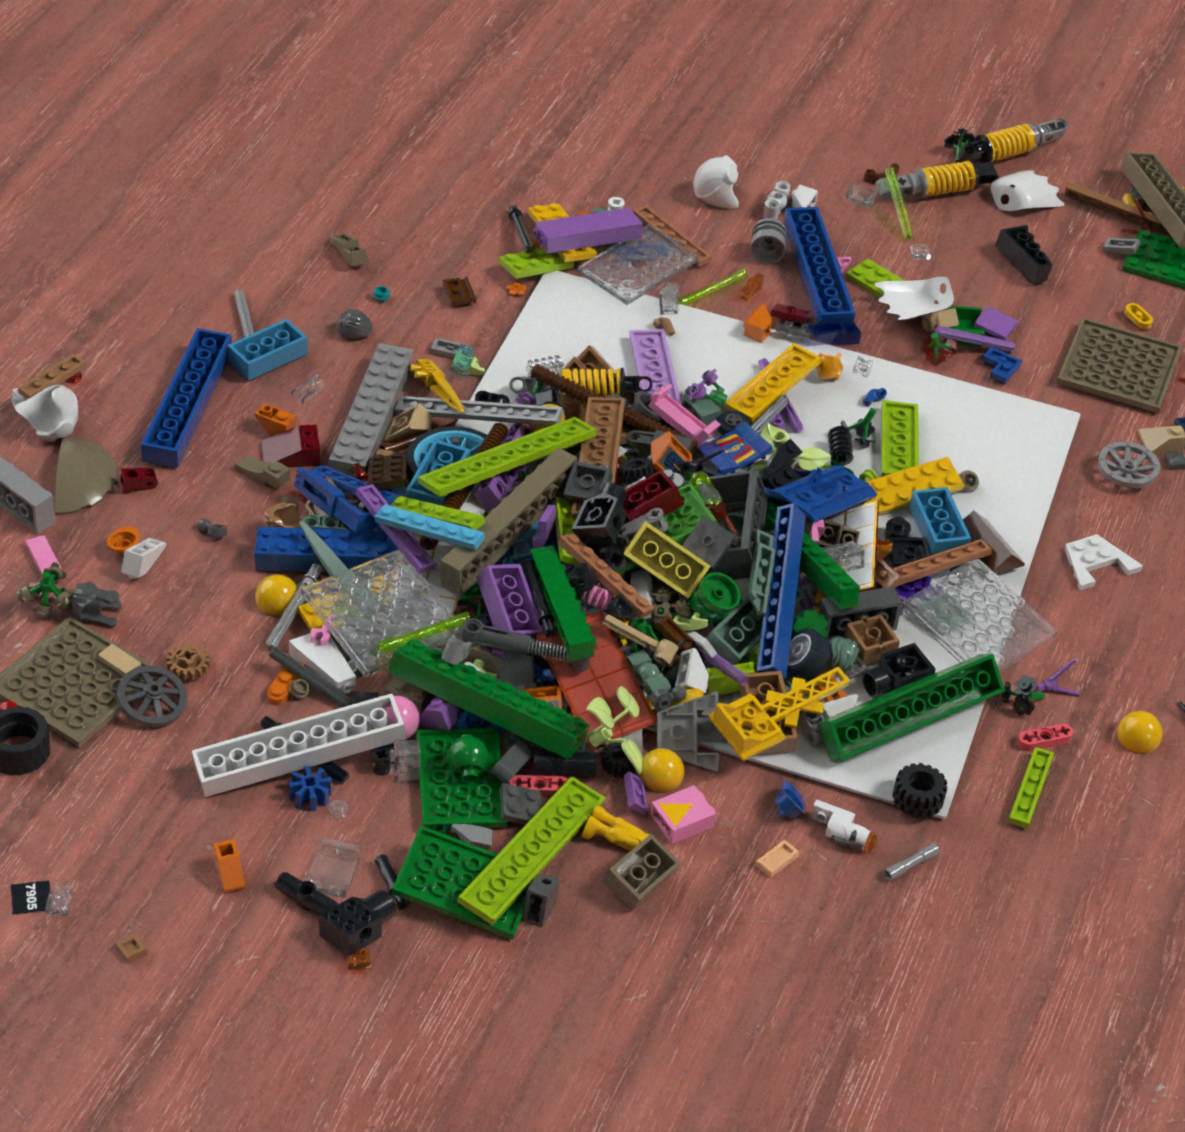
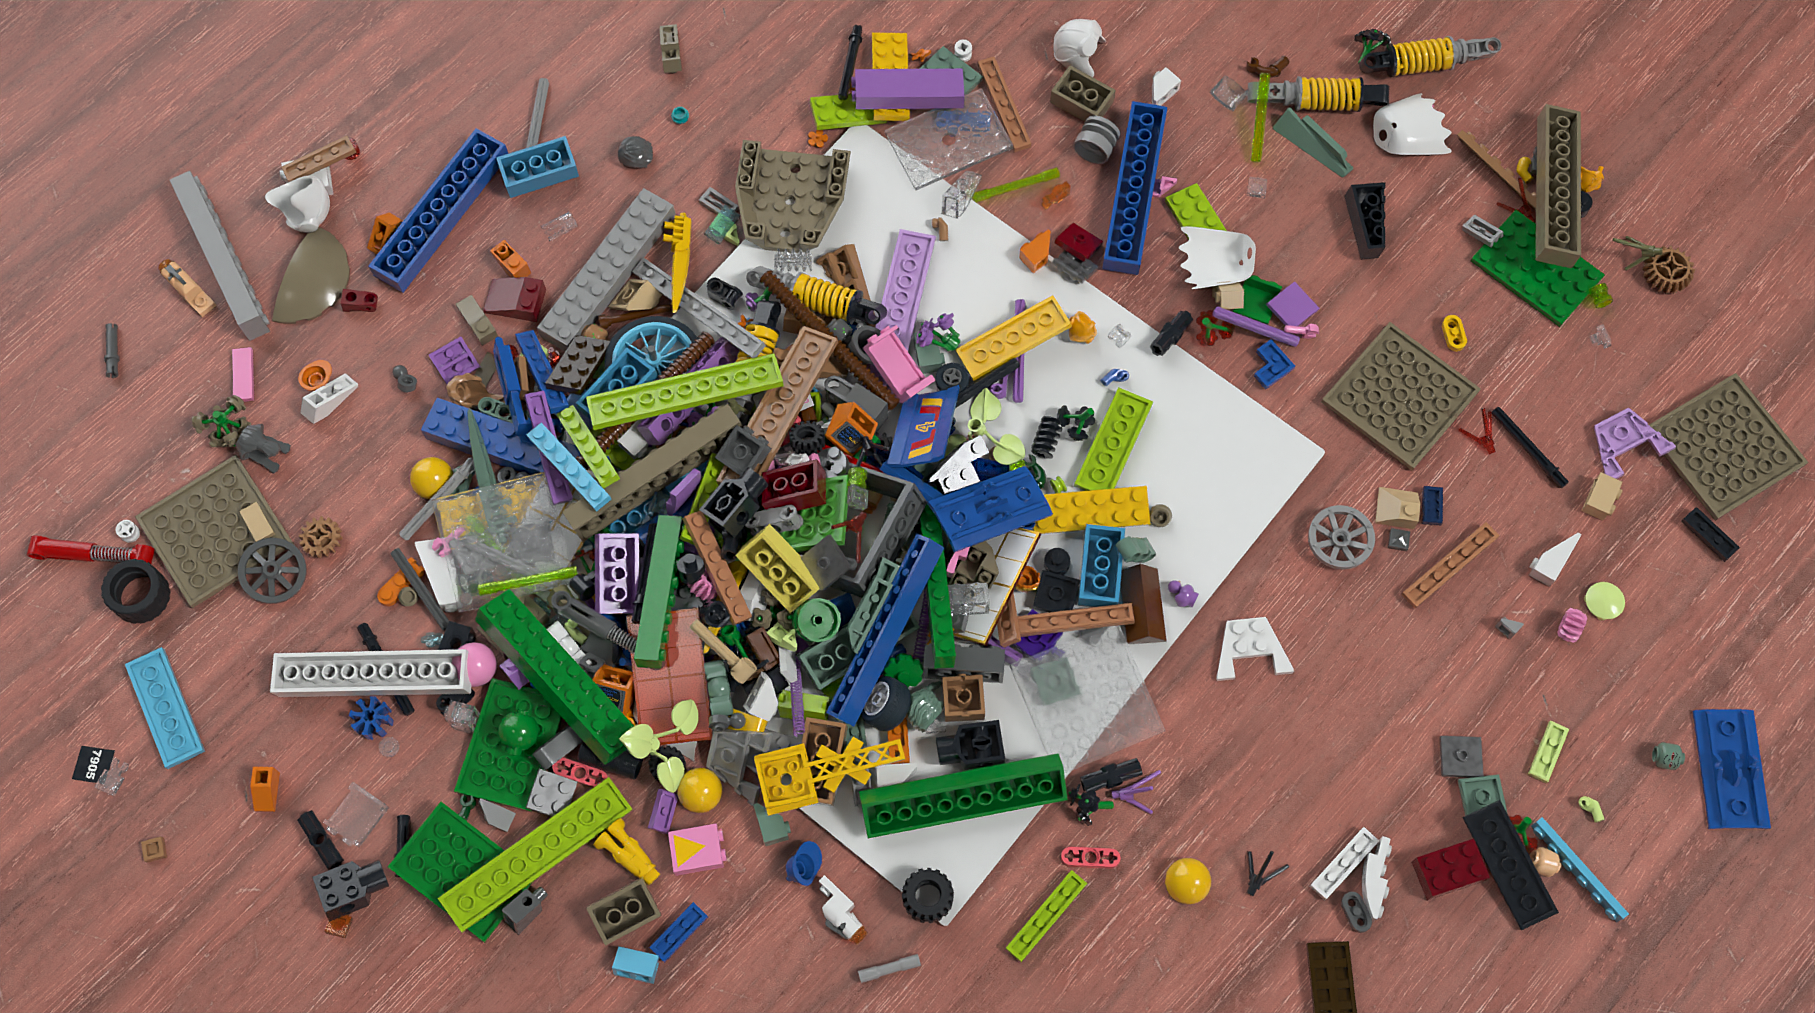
camera: 25 degrees right, 25 degrees up
(89, 830) = (164, 708): none -> medium azure plate
(138, 425) = (382, 230): none -> orange slope
(252, 506) = (454, 360): none -> medium lavender slope
(456, 650) = (538, 620): light grey piece -> none
(459, 291) = (757, 128): reddish brown plate -> none
(537, 317) = (767, 183): none -> dark tan wedge
(672, 917) = (635, 965): none -> medium azure hinge
(700, 882) = (678, 932): none -> blue plate
(737, 215) = (1082, 94): none -> dark tan brick
(743, 779) = (772, 827): none -> sand green slope
(776, 200) = (1141, 77): white piece -> none
(777, 858) = (765, 924): light nougat tile -> none
(836, 333) = (1112, 280): clear blue slope -> none
(906, 357) = (1171, 333): none -> black piece
(950, 214) = (1314, 141): none -> sand green wedge
(964, 499) = (1135, 549): none -> sand green piece
(1015, 337) = (1307, 332): none -> bright pink bar
(1022, 529) = (1186, 593): none -> medium lavender animal
(1034, 669) = (1111, 775): none -> black piece

